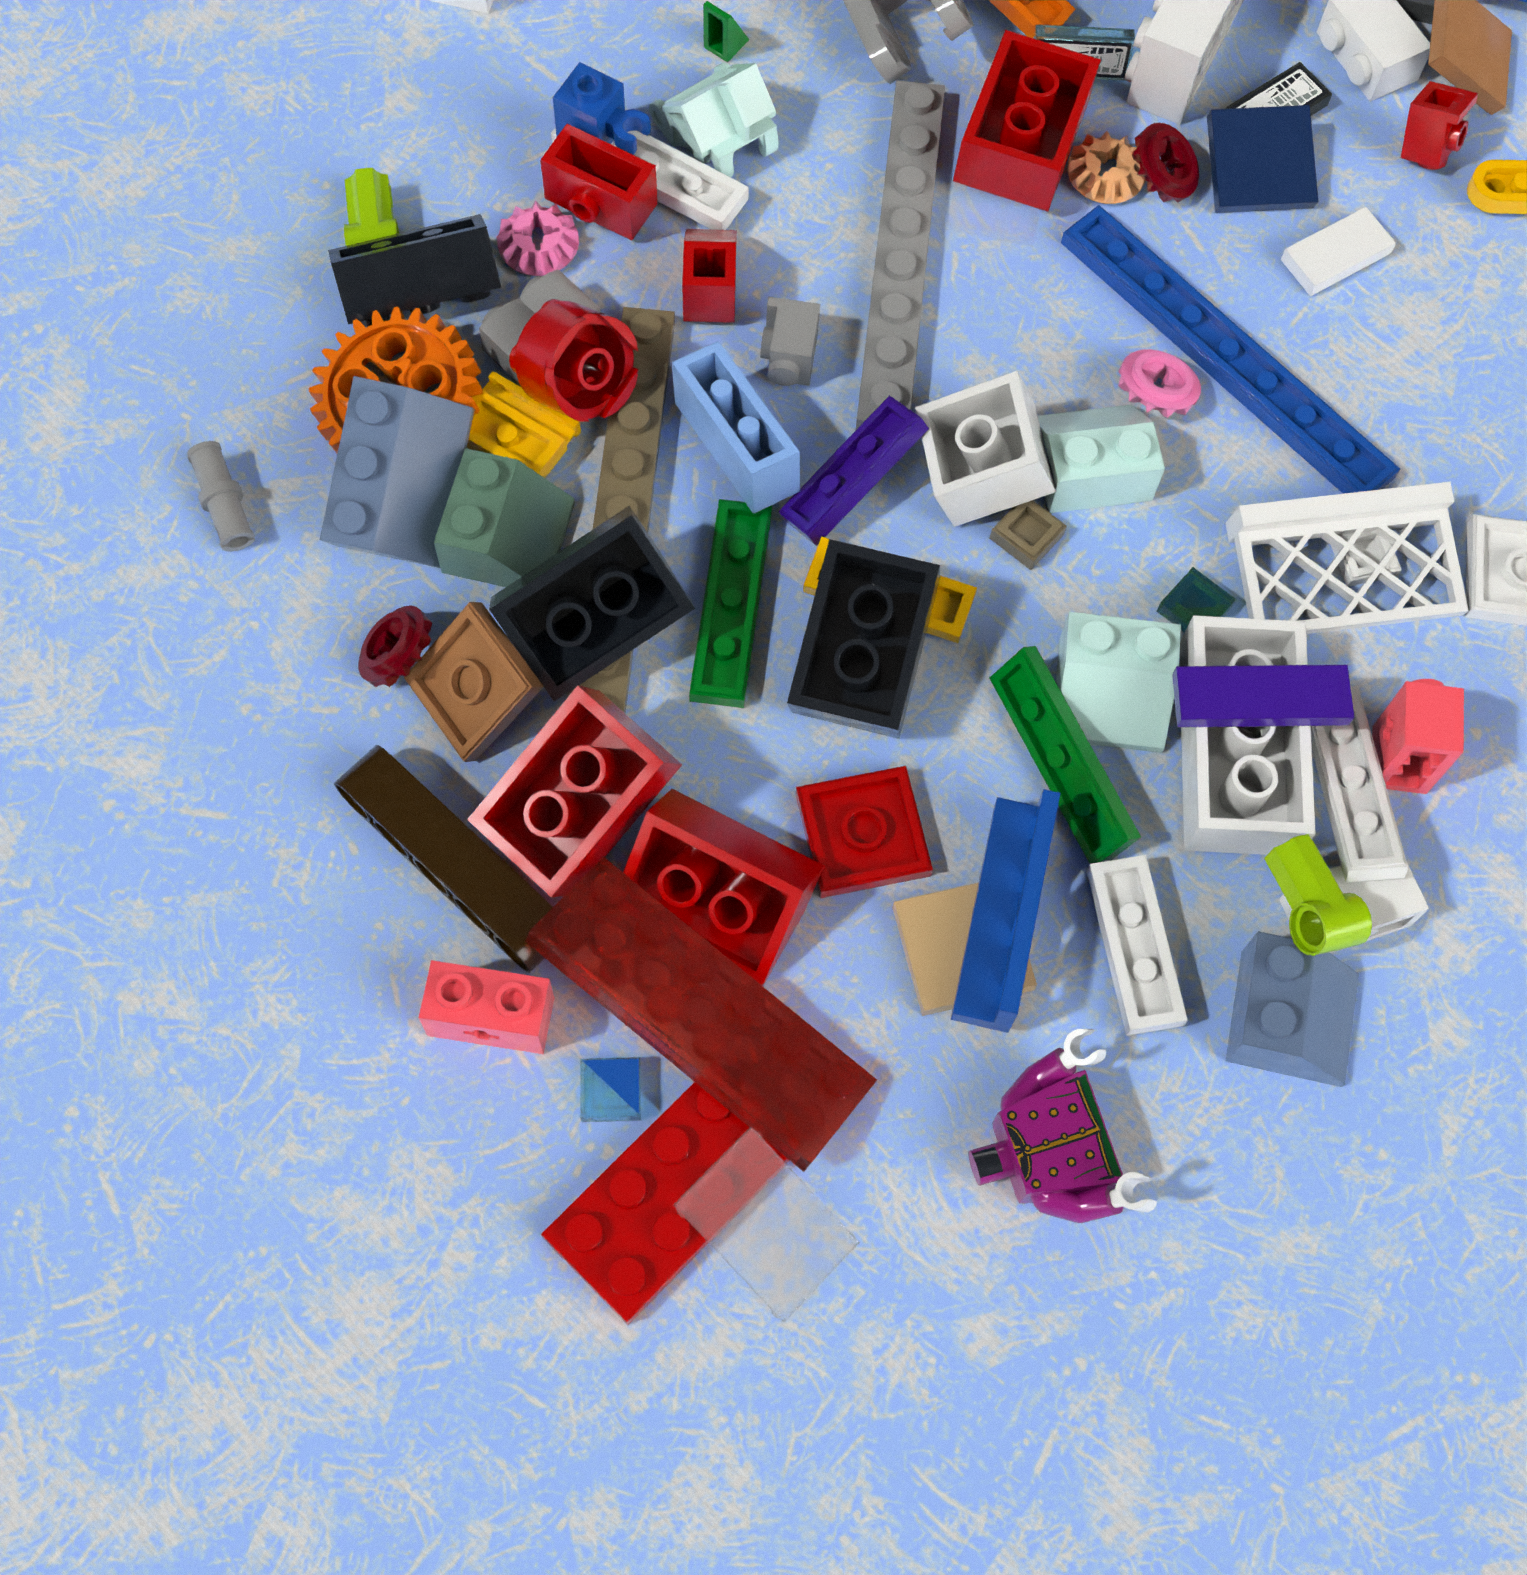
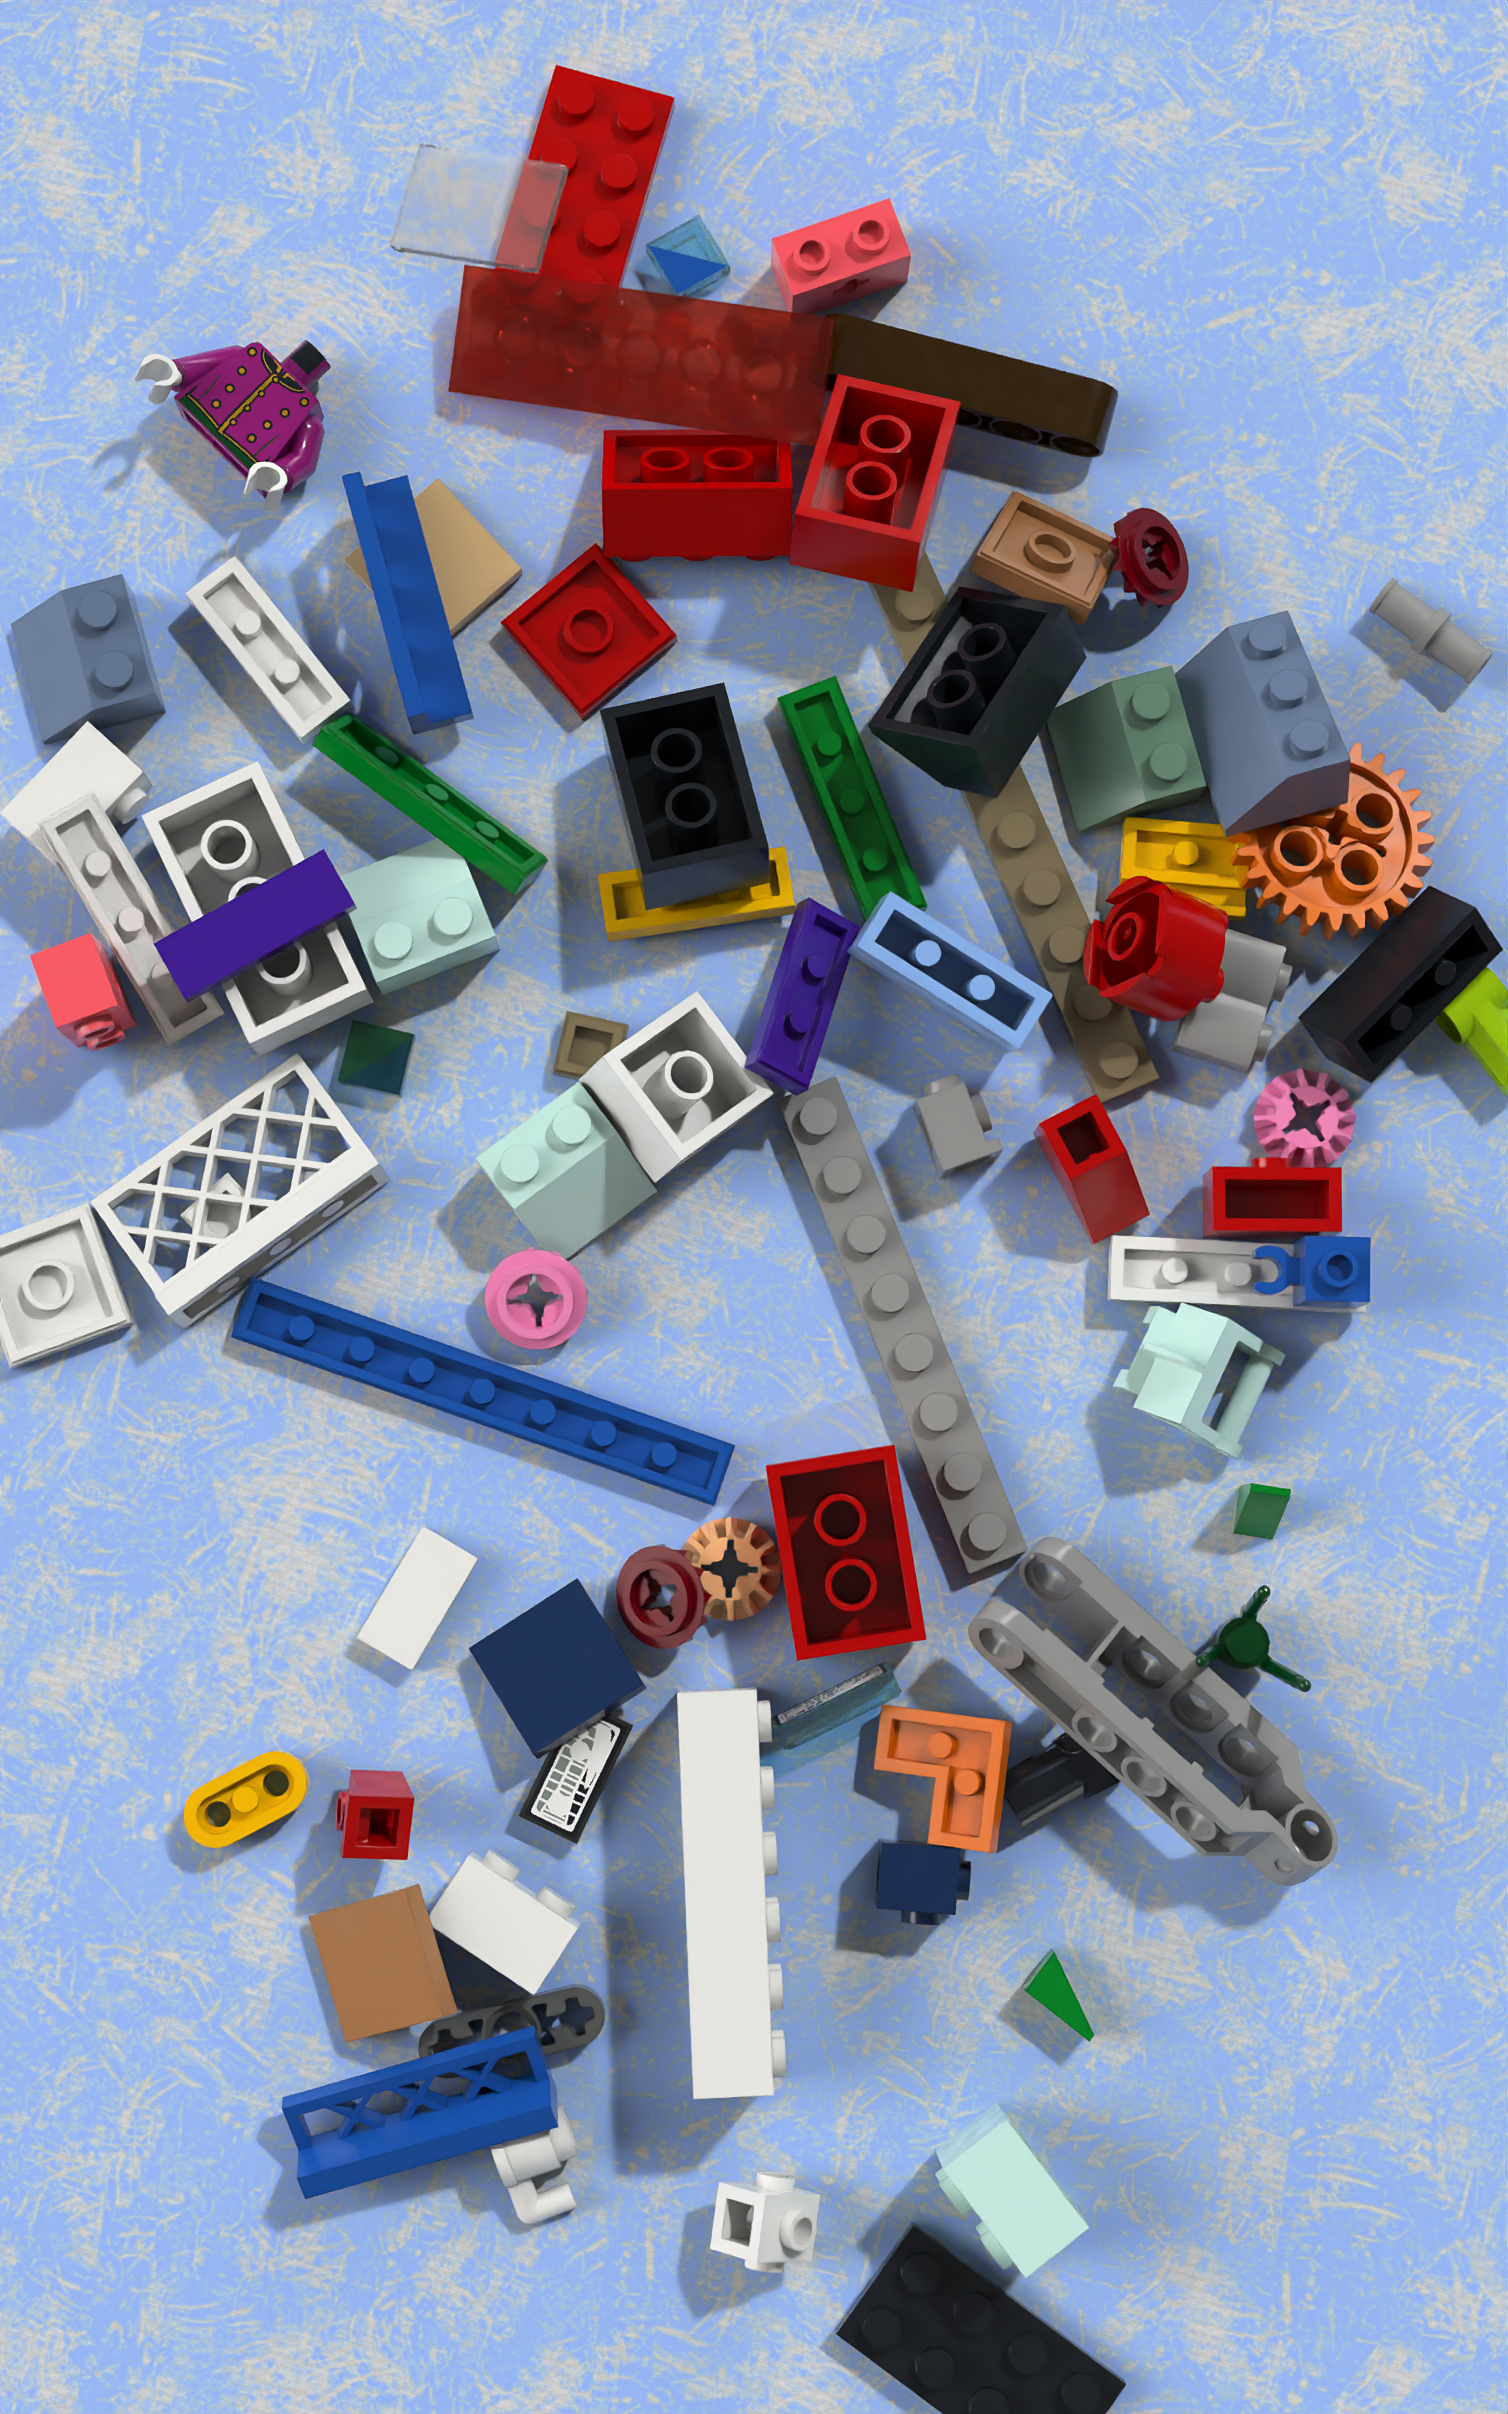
camera: 150 degrees right, 15 degrees up
(1321, 914) = (97, 731): lime piece -> none

